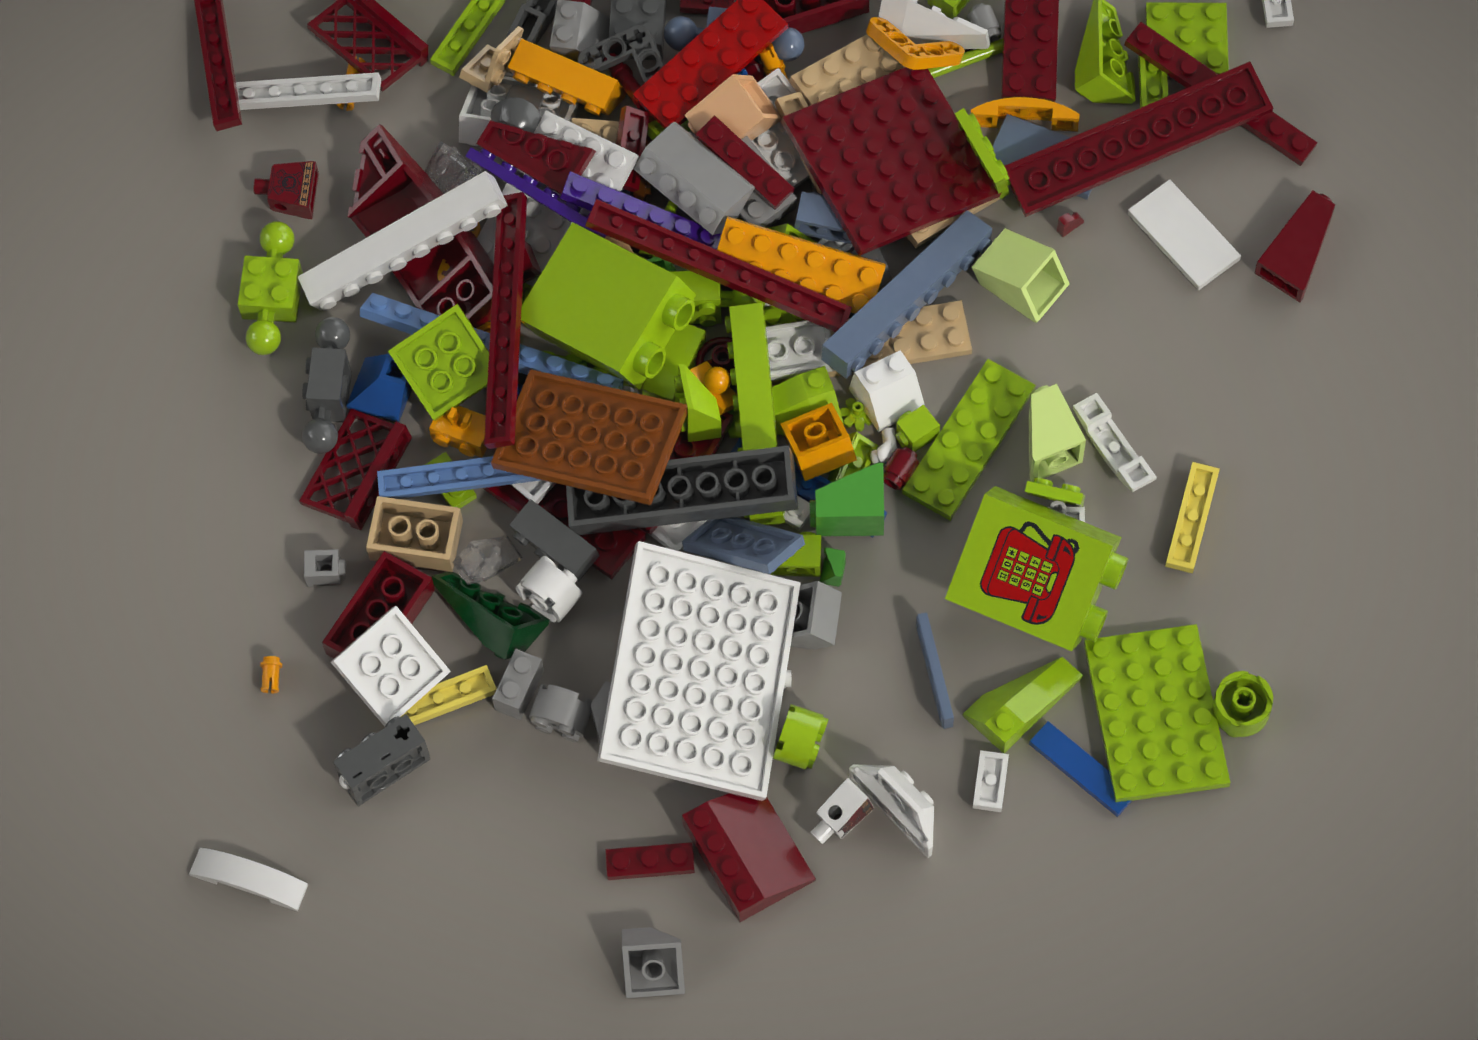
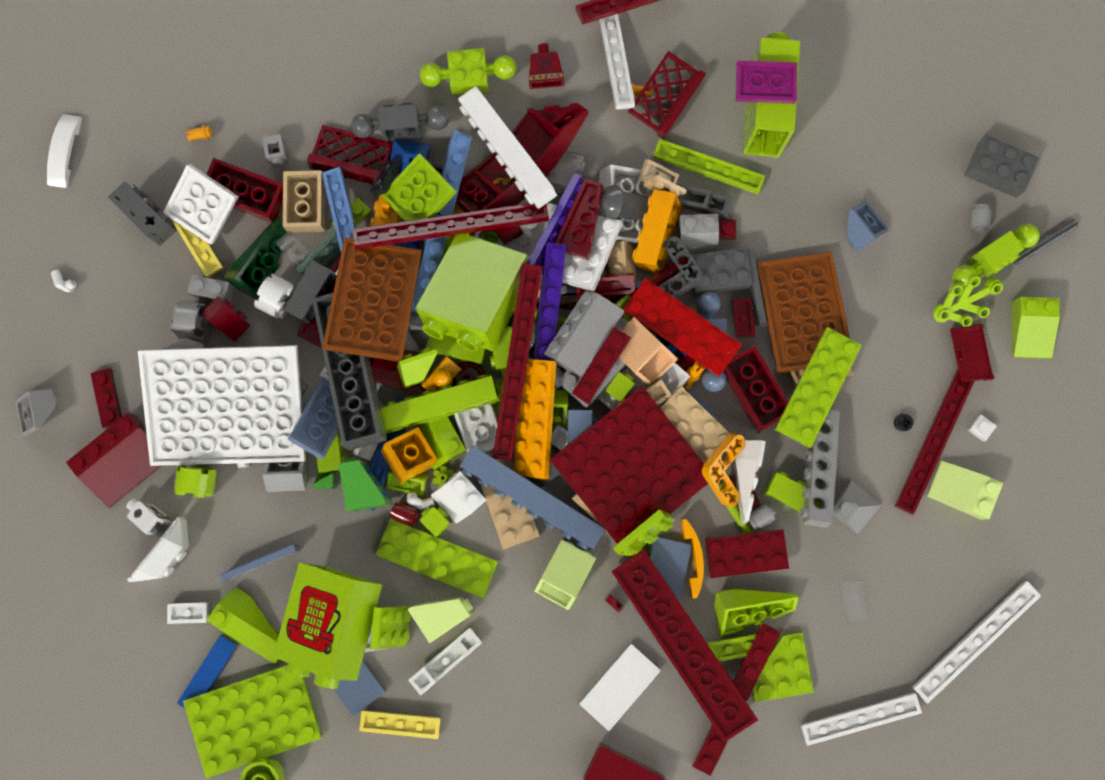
camera: 80 degrees right, 15 degrees up
(407, 410) = (387, 175): none -> black plate
(458, 905) = (67, 286): none -> white arm
(497, 525) = (323, 253): none -> sand green tile
(568, 661) = (226, 319): none -> dark red brick
(777, 152) = (621, 386): none -> lime brick
(1143, 571) = (360, 693): none -> sand blue tile

